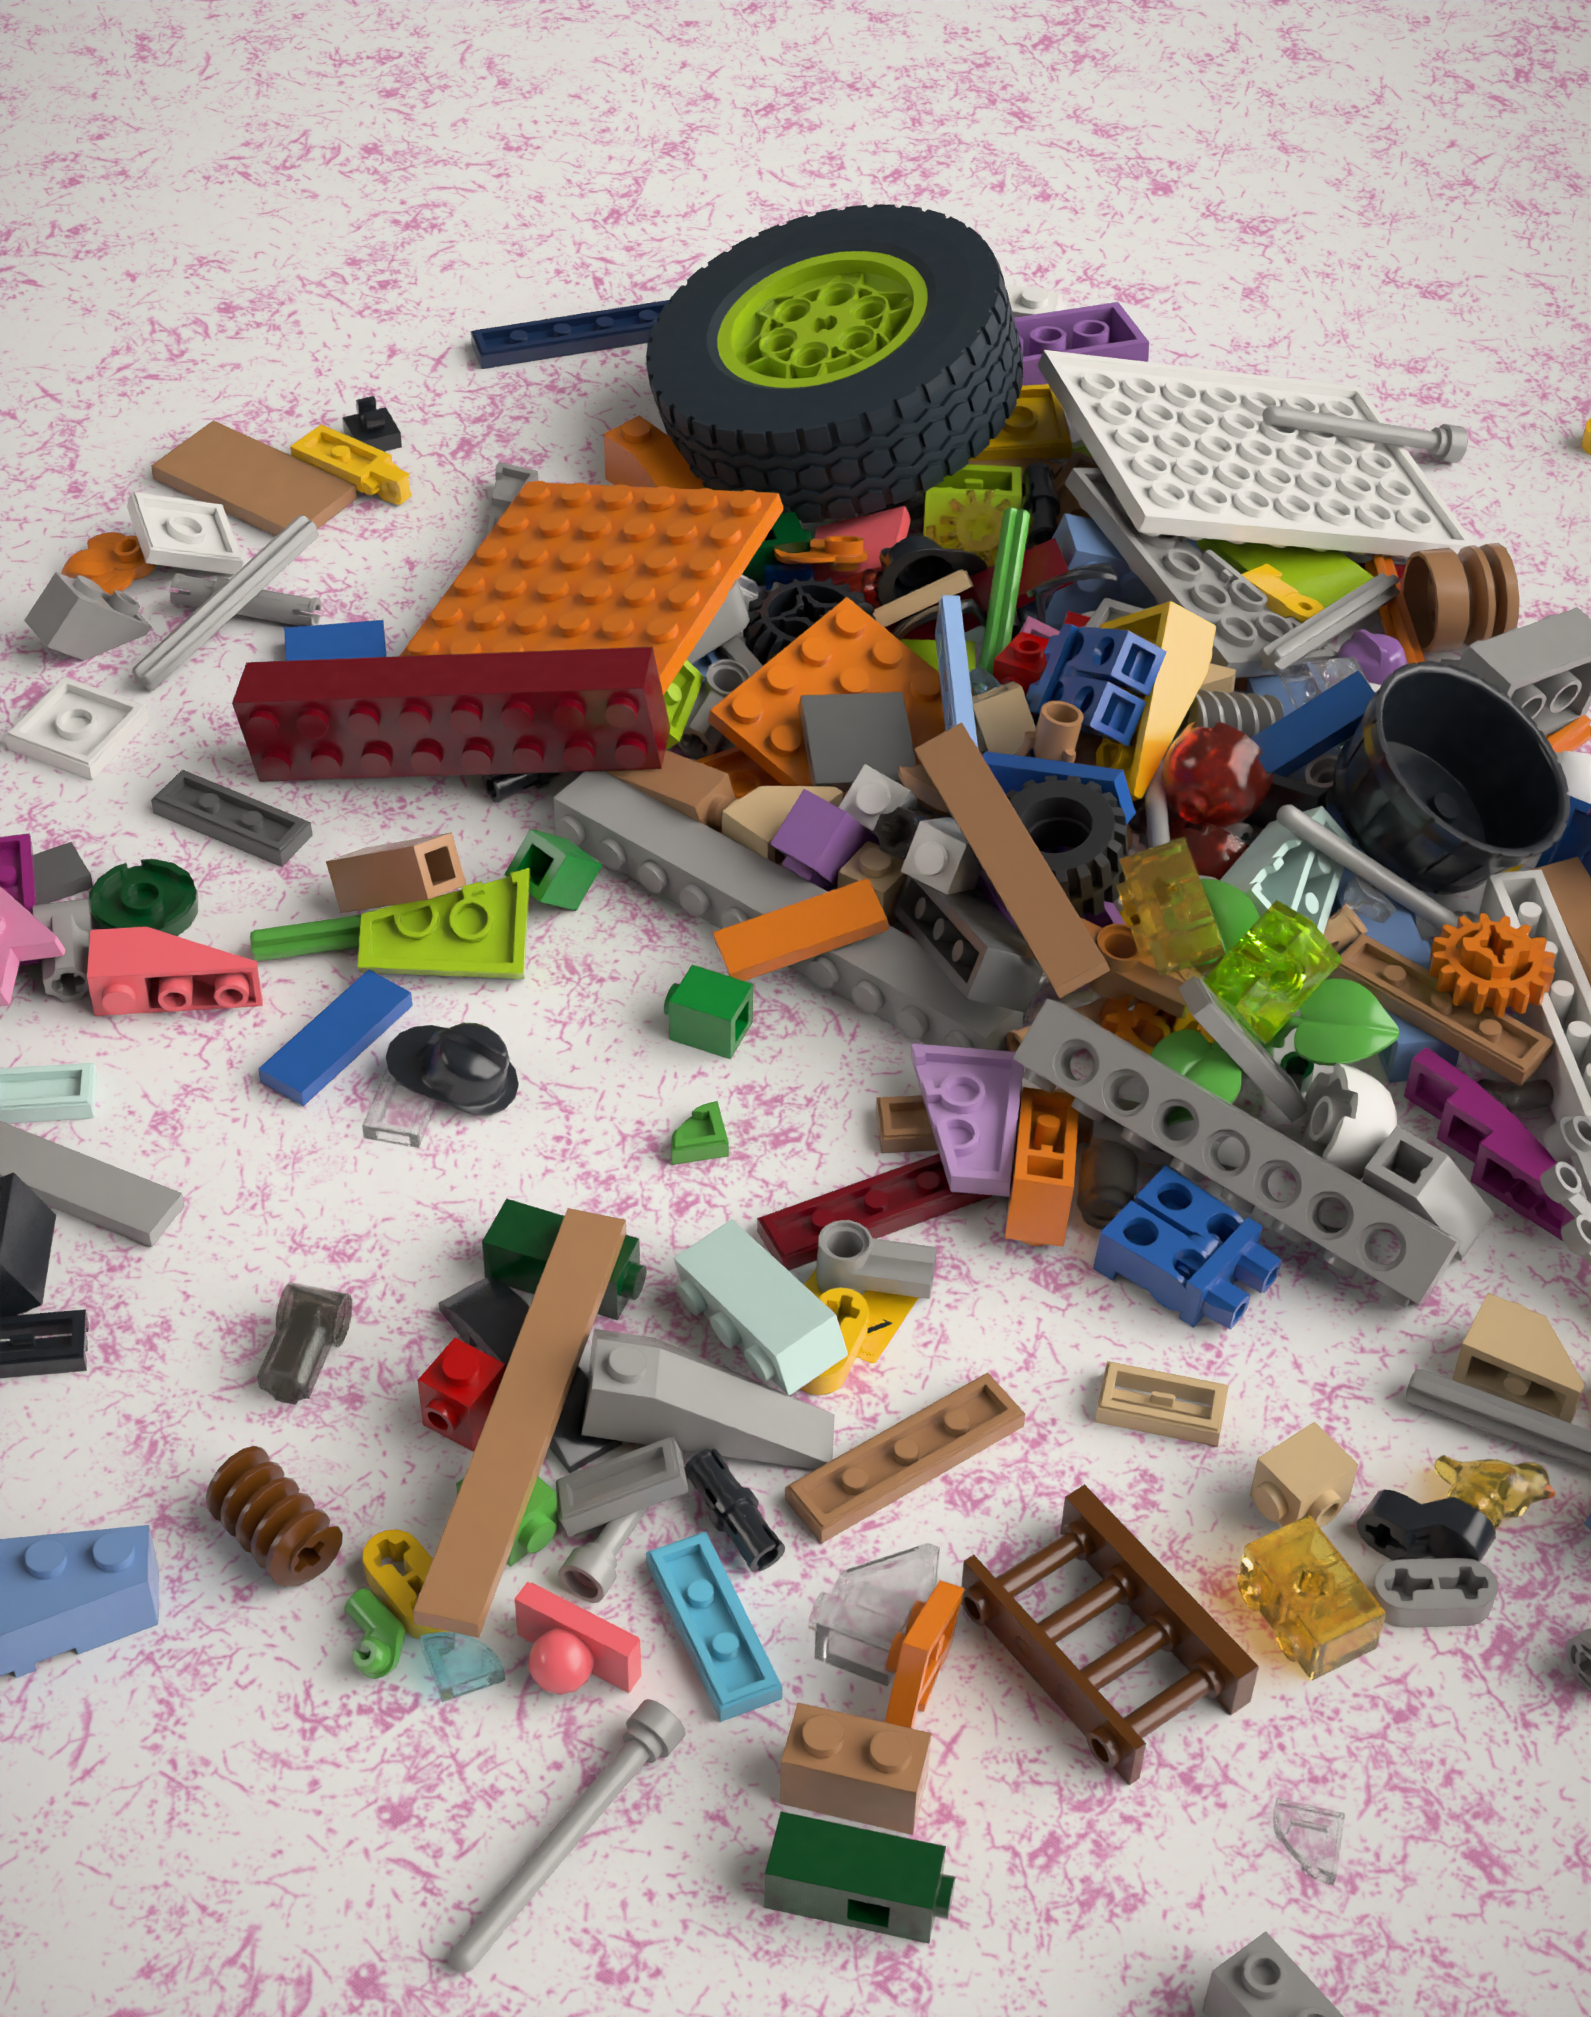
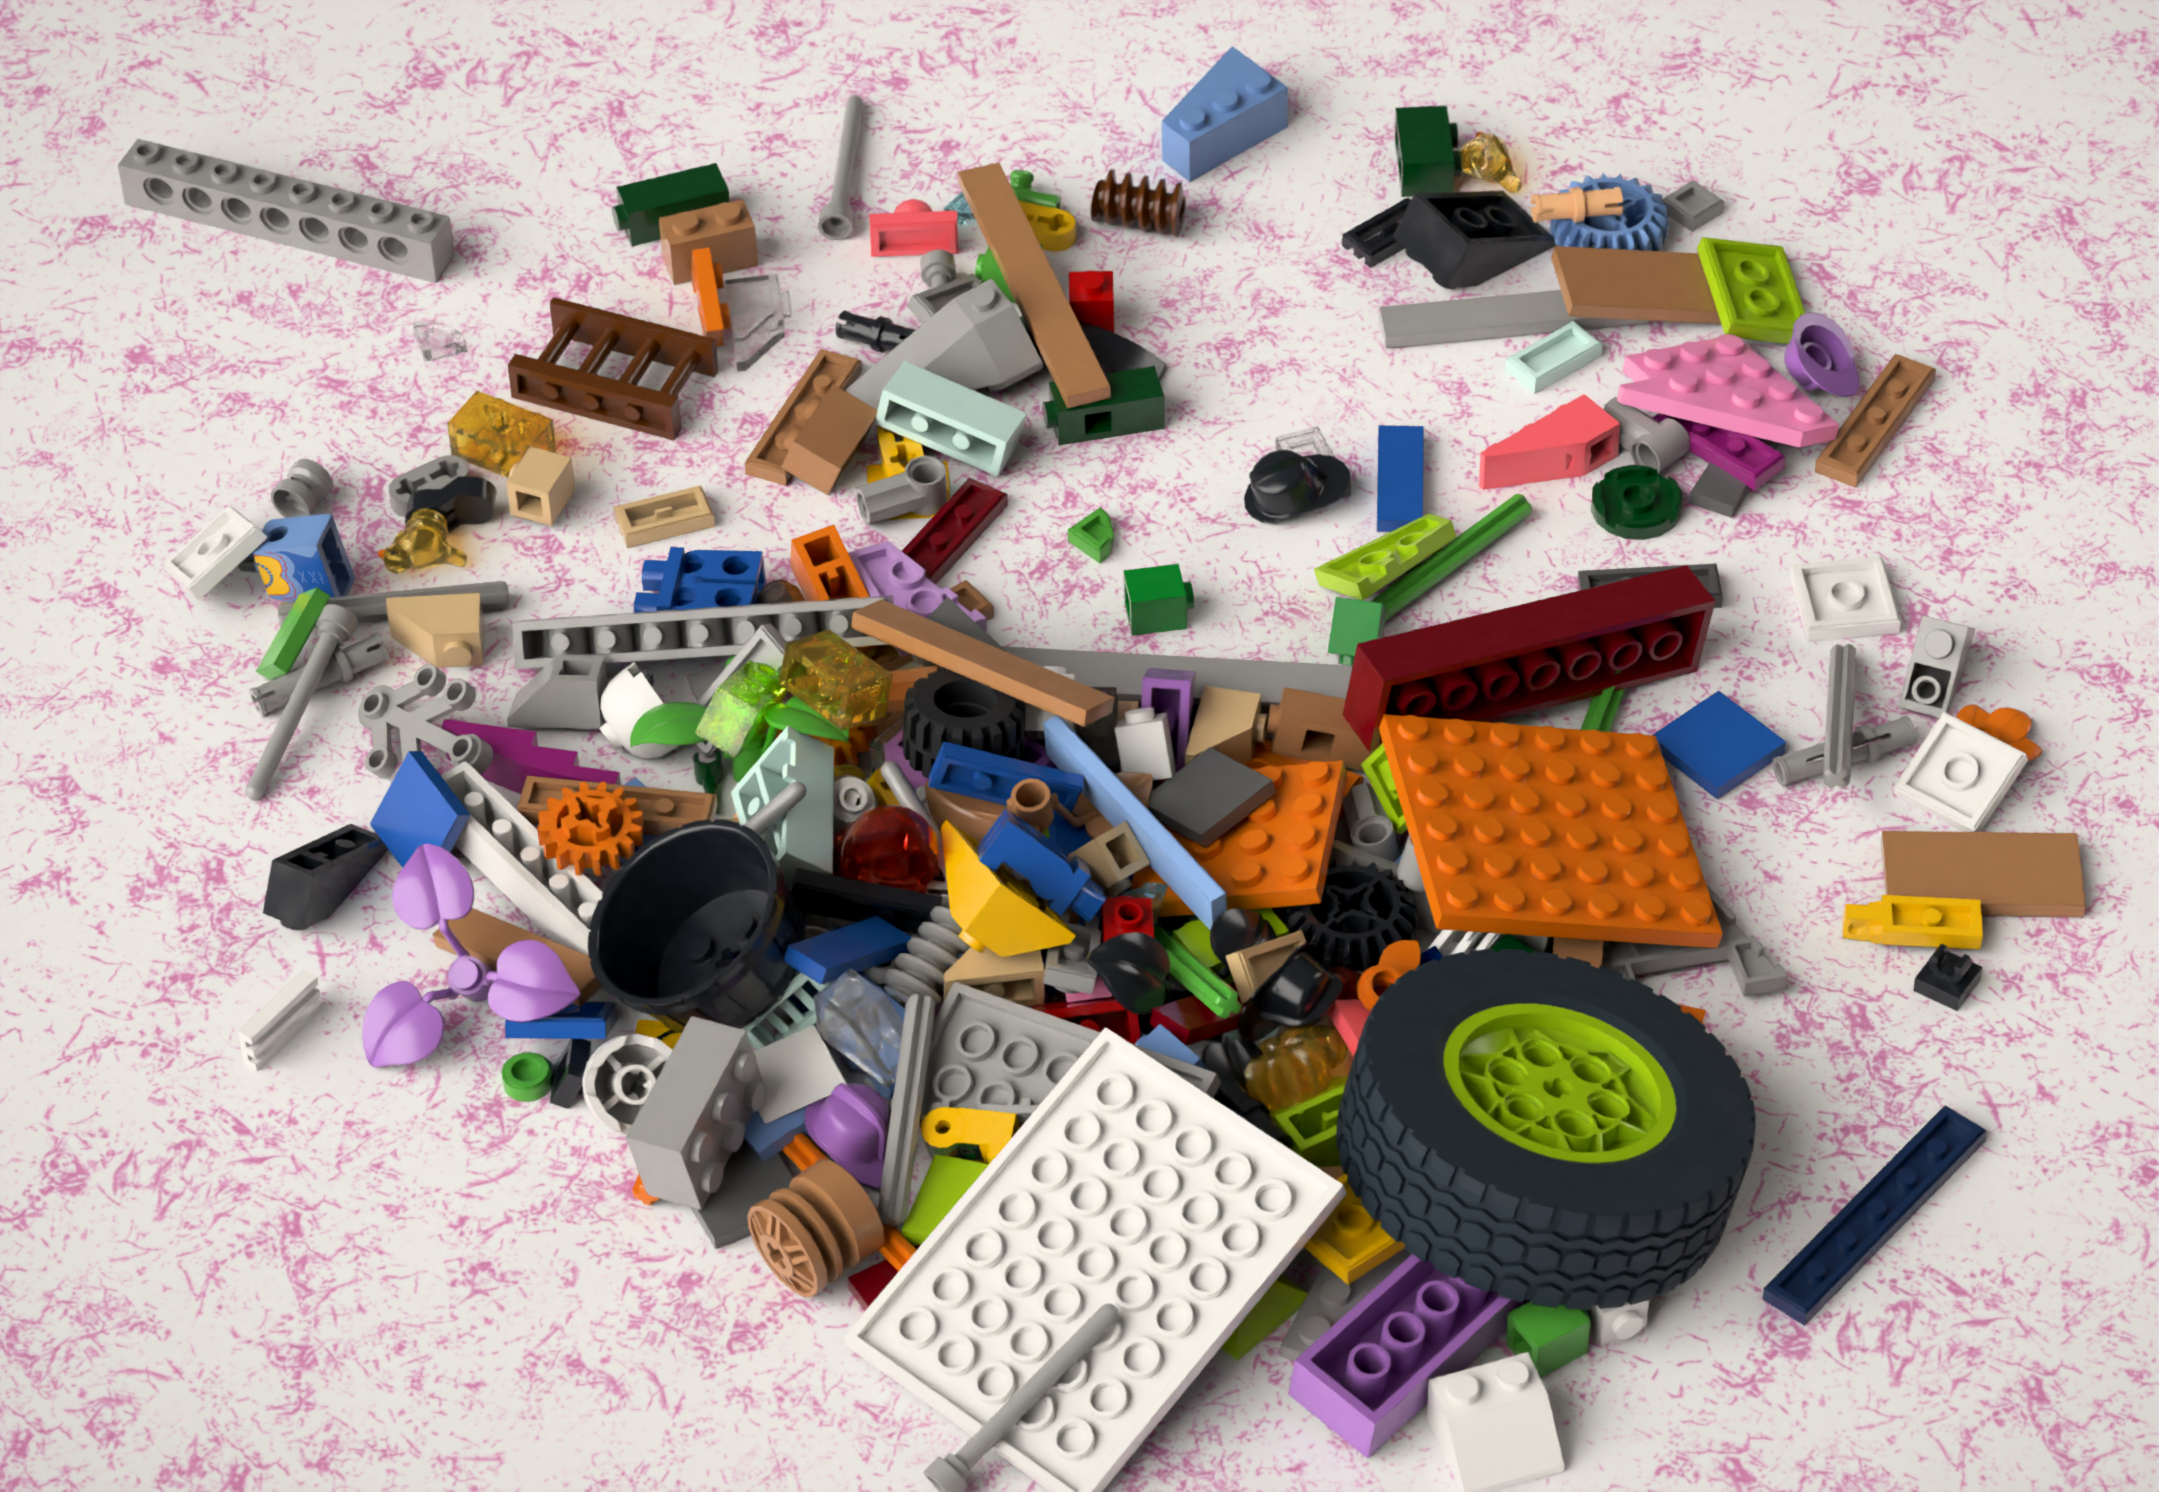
camera: 150 degrees right, 0 degrees up
(306, 1328) = (1222, 302): clear smoke piece -> none
(396, 873) = (1453, 547): medium nougat brick -> none
(714, 1626) = (846, 286): medium azure tile -> none
(801, 930) = (1125, 642): orange tile -> none
(913, 1364) = (828, 439): none -> medium nougat brick

